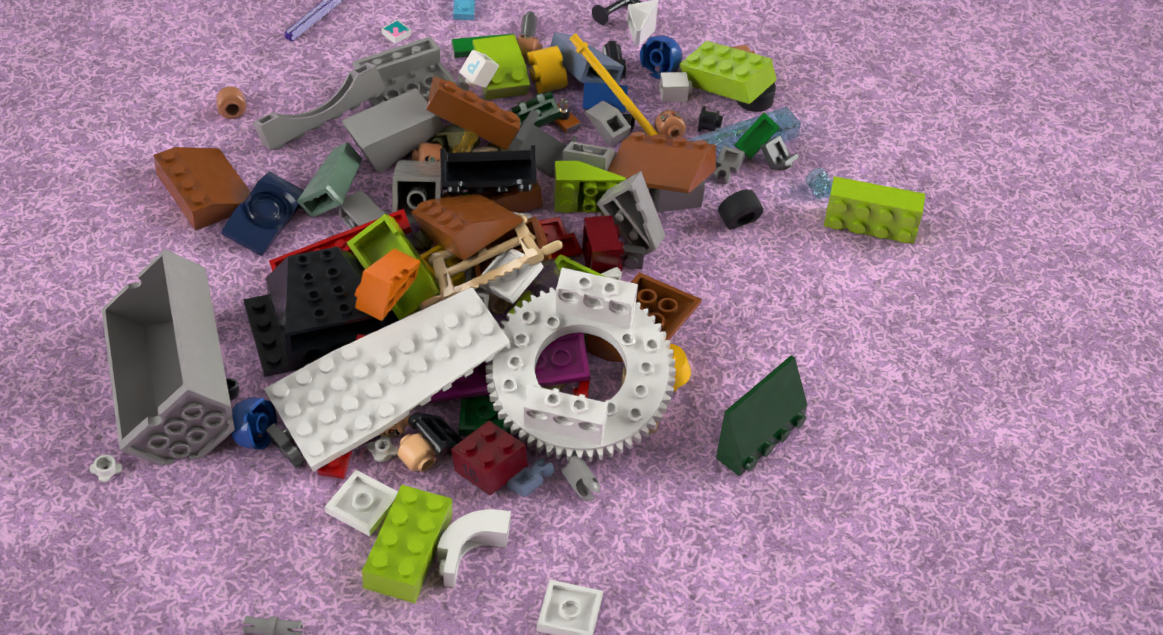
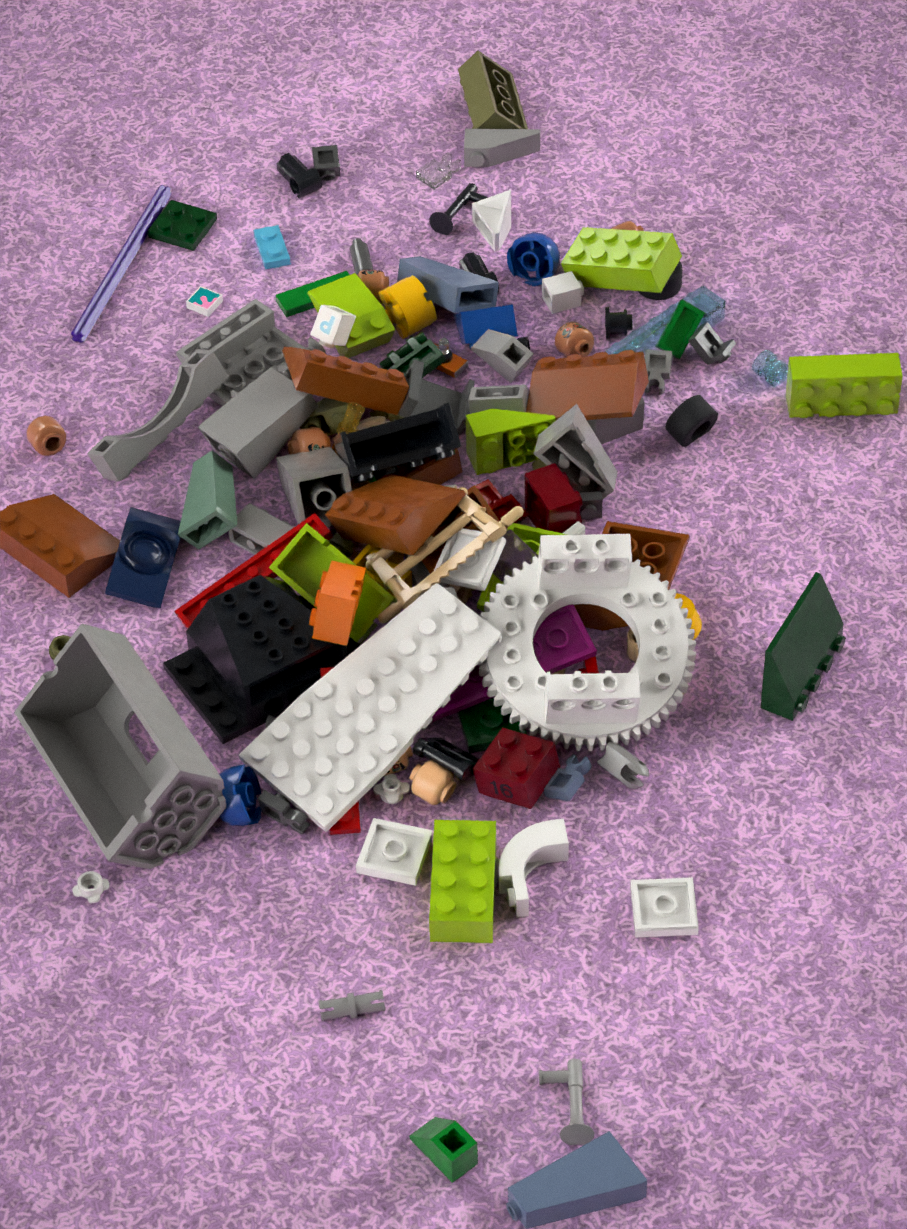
camera: 10 degrees left, 0 degrees up
(582, 48) = (449, 272): yellow bar -> none

